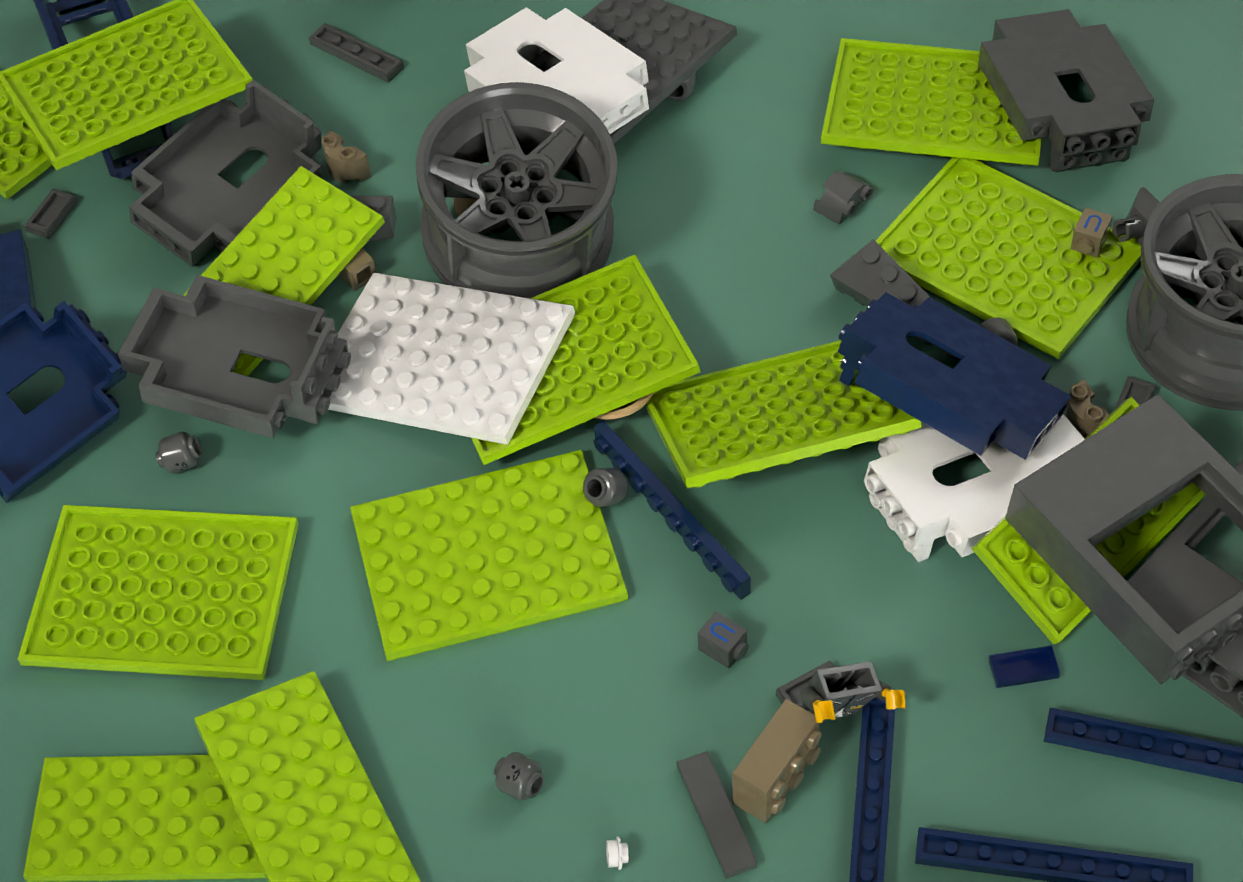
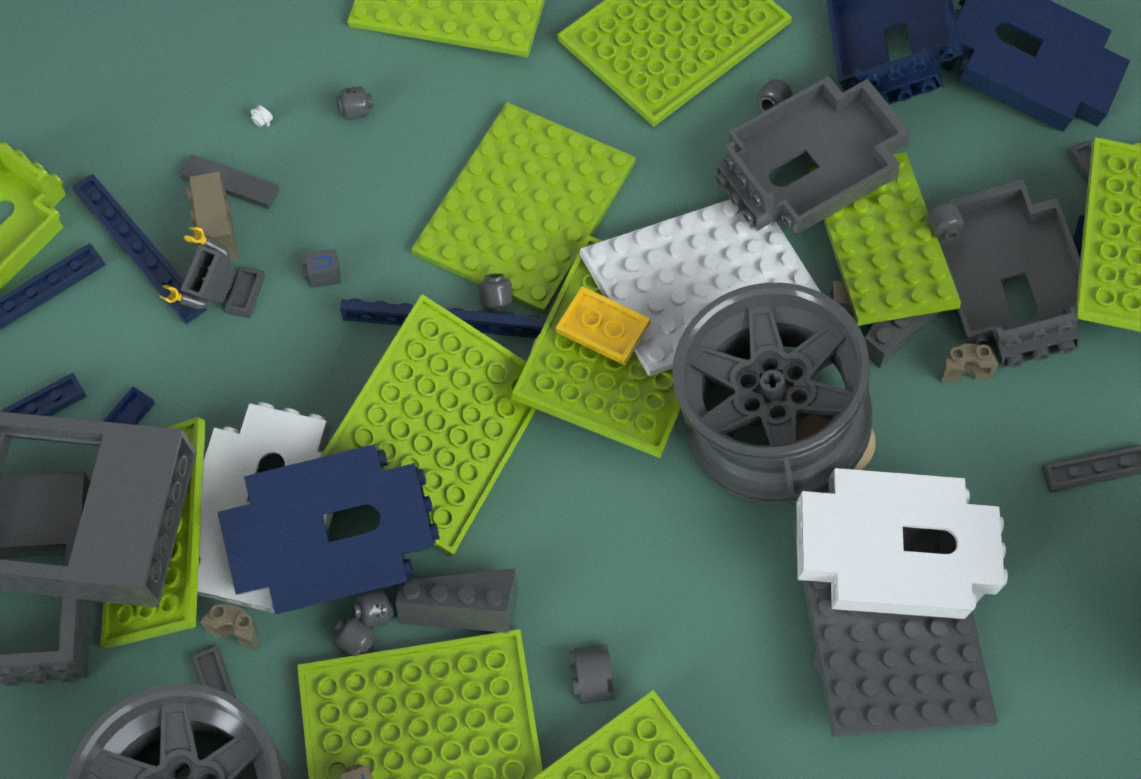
camera: 130 degrees right, 10 degrees up
(222, 228) = (945, 220): none -> dark grey head
(569, 354) = (603, 325): none -> yellow plate

